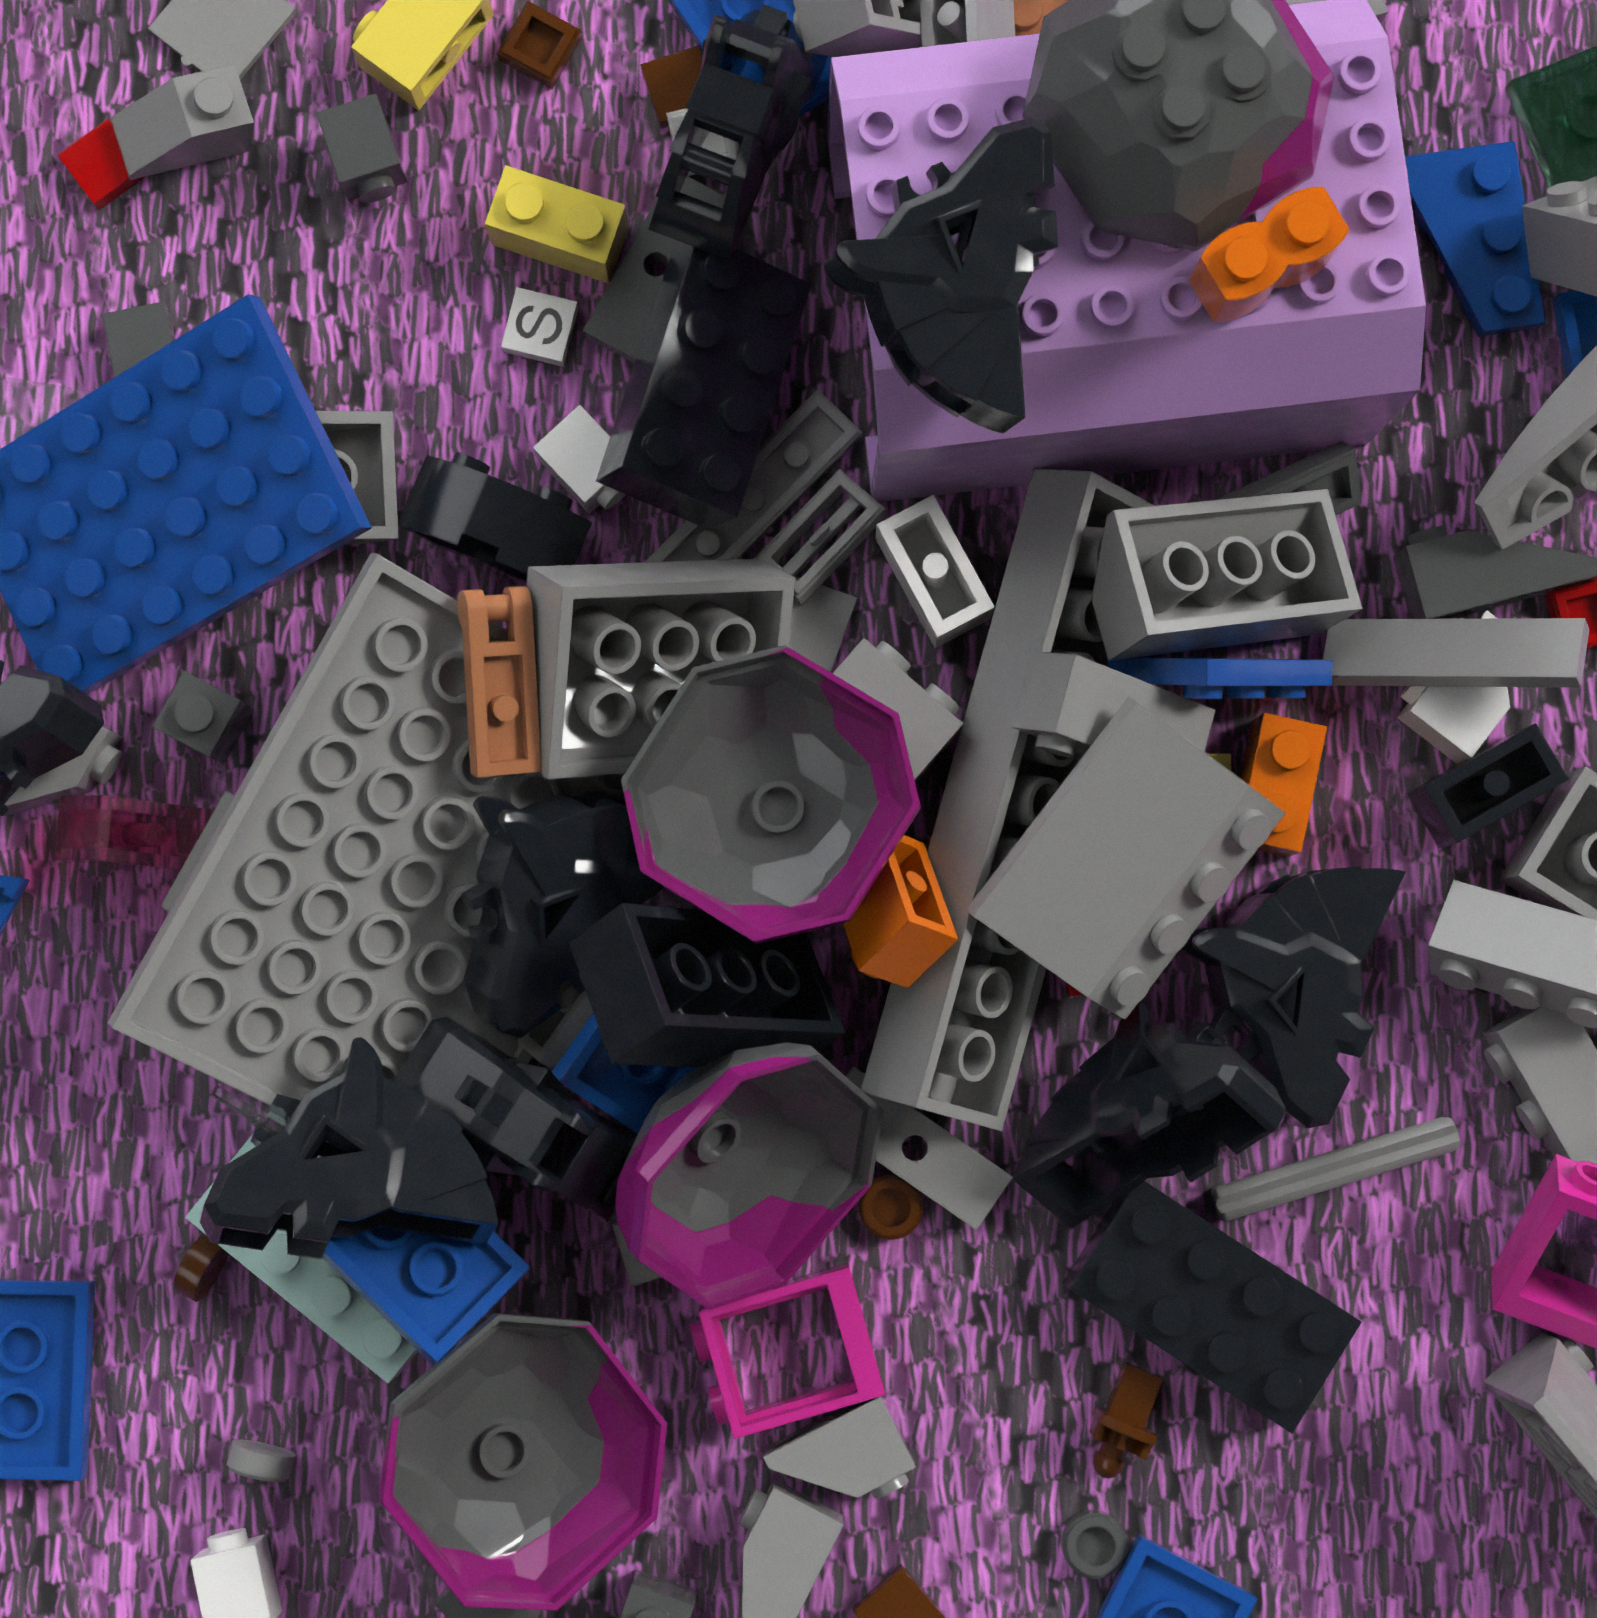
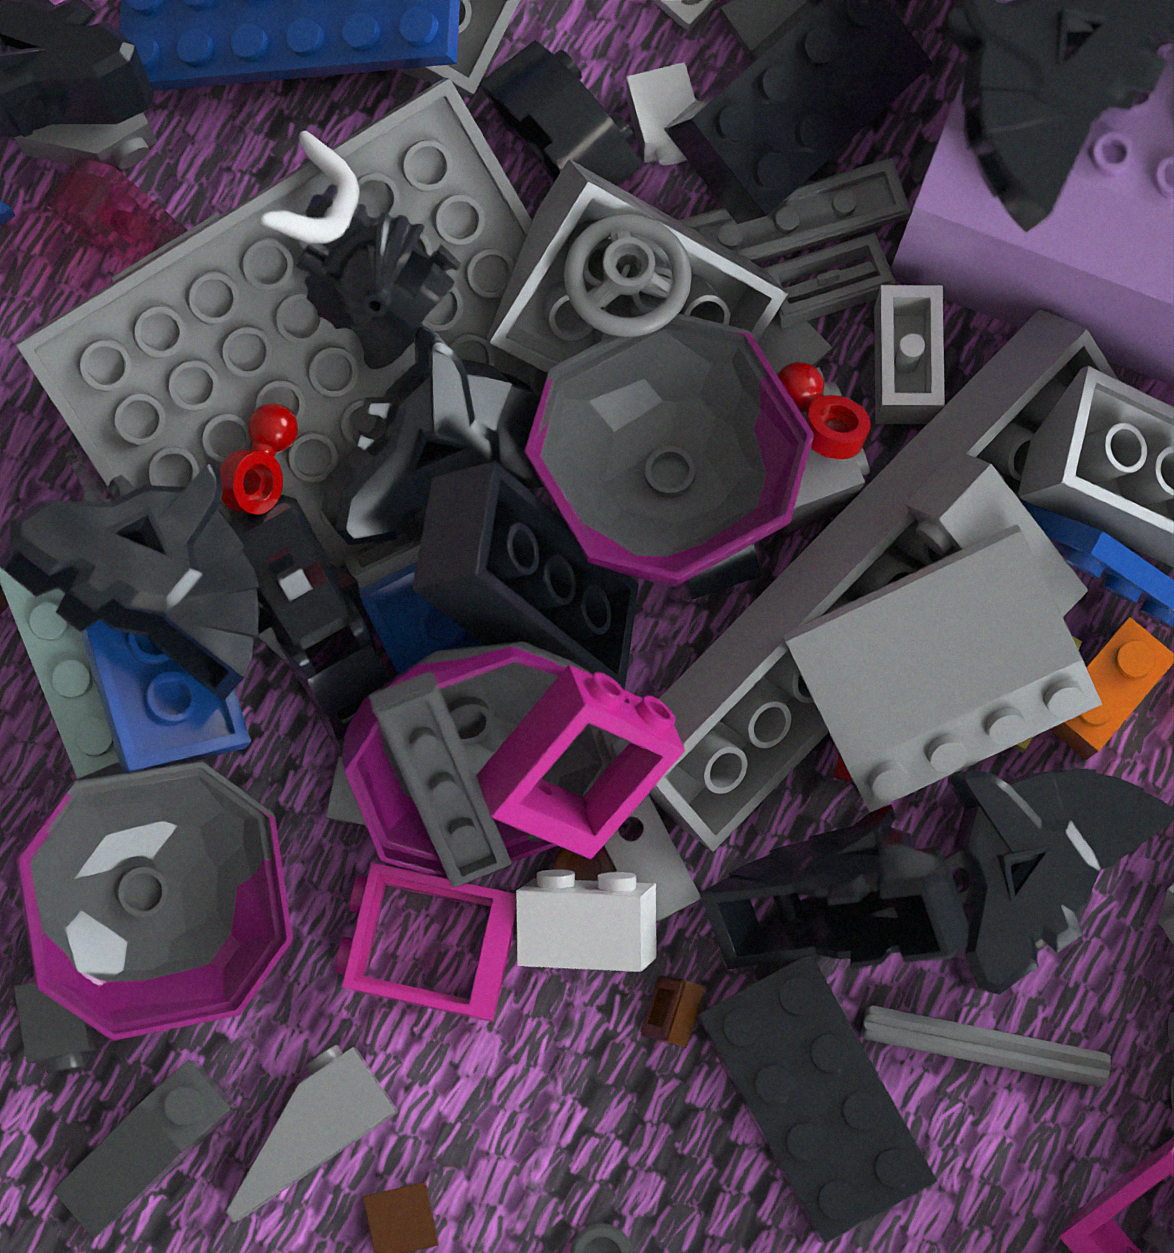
camera: 30 degrees right, 5 degrees down
(203, 717) = (232, 156): dark grey brick -> none
(394, 779) = (373, 270): none -> black helmet
(397, 1021) = (271, 430): none -> red plate
(500, 683) = (496, 239): nougat plate -> none
(630, 633) = (634, 252): none -> light grey piece
(727, 1215) = (440, 778): none -> dark grey tile
(821, 1188) = (577, 823): none -> dark pink window
(846, 1451) = (434, 1055): light grey slope -> none
(902, 678) = (836, 421): none -> red plate
(902, 919) = (722, 612): orange brick -> none
(922, 1258) = (586, 922): none -> white brick
(1041, 1293) = (672, 1011): none -> reddish brown tile
(1124, 1420) = (684, 1162): reddish brown piece -> none

